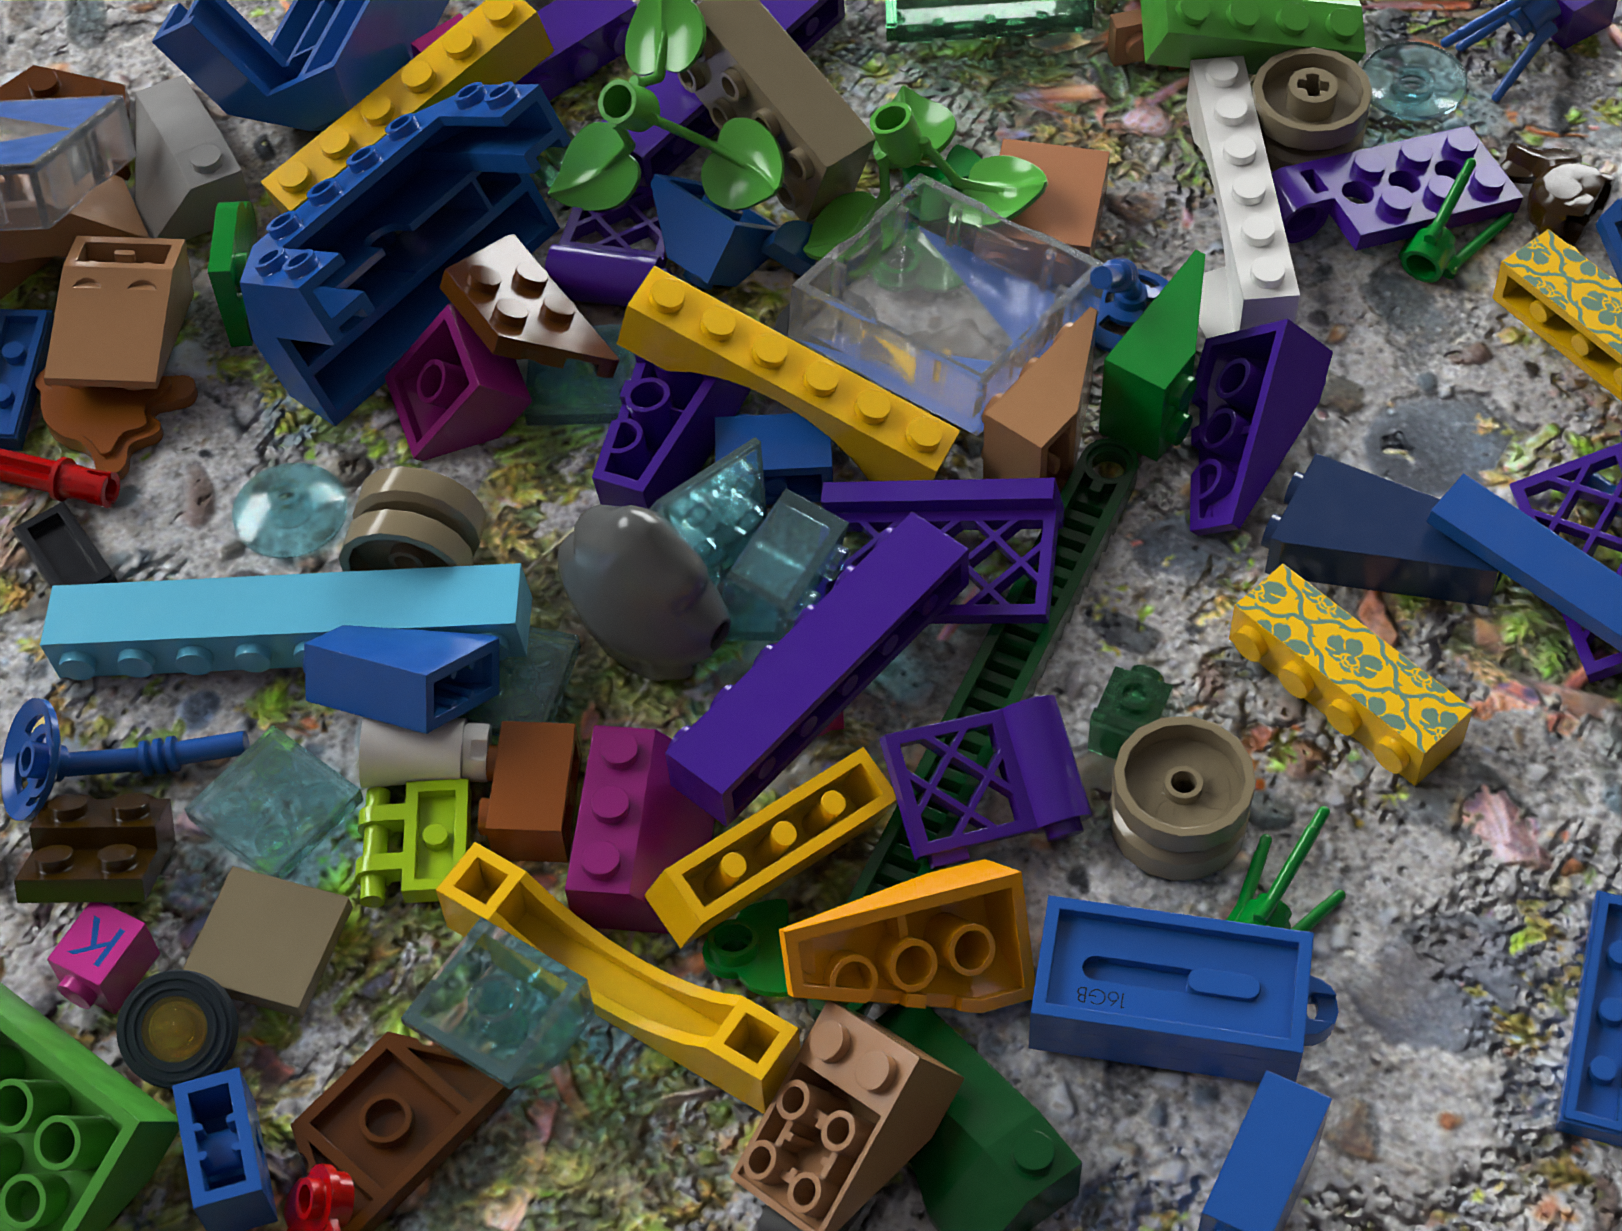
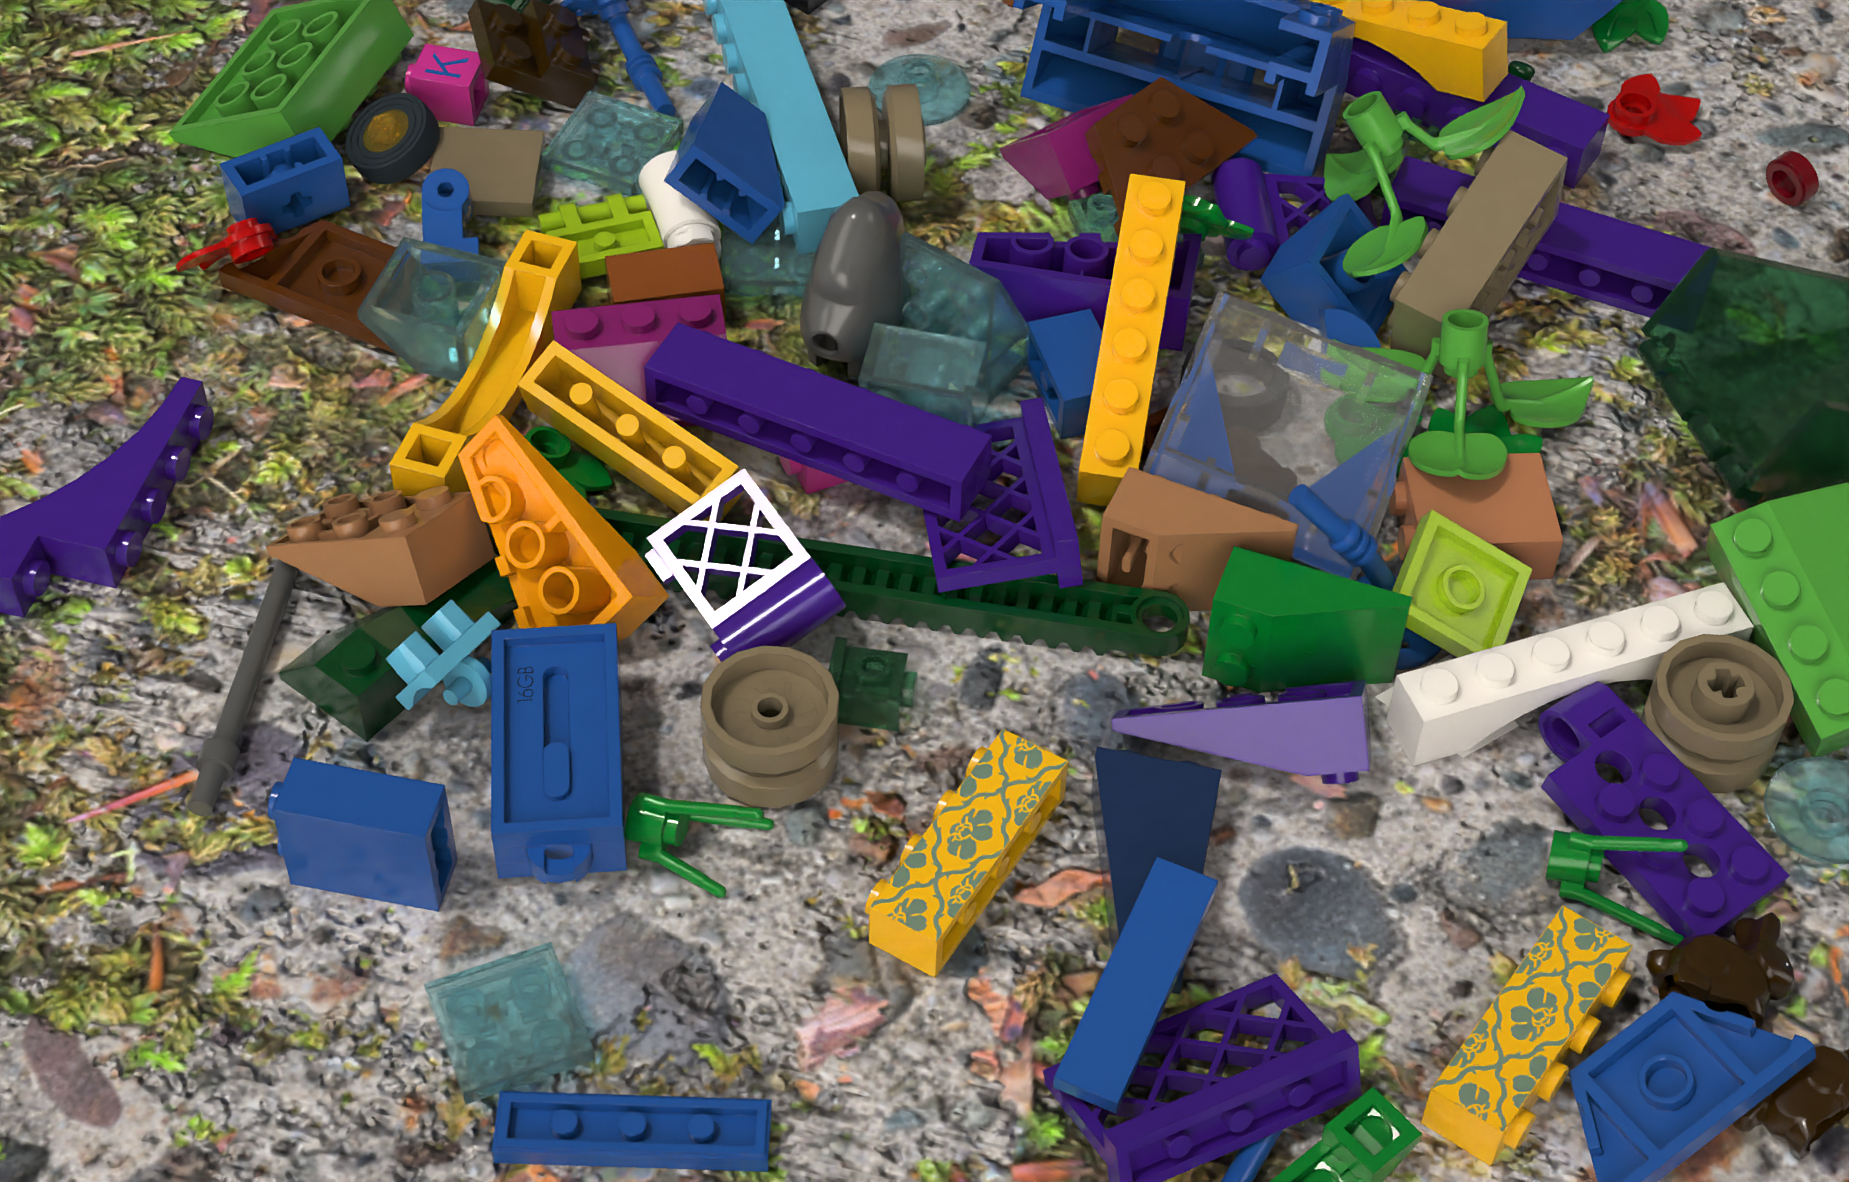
camera: 70 degrees right, 5 degrees down
(358, 986) = (447, 210): none -> blue leg
(614, 304) = (1207, 219): none -> green plate
(1046, 1068) = (422, 668): none -> medium azure hips
(1148, 233) = (1459, 587): none -> lime plate
(1484, 1099) = (508, 1022): none -> clear light blue tile

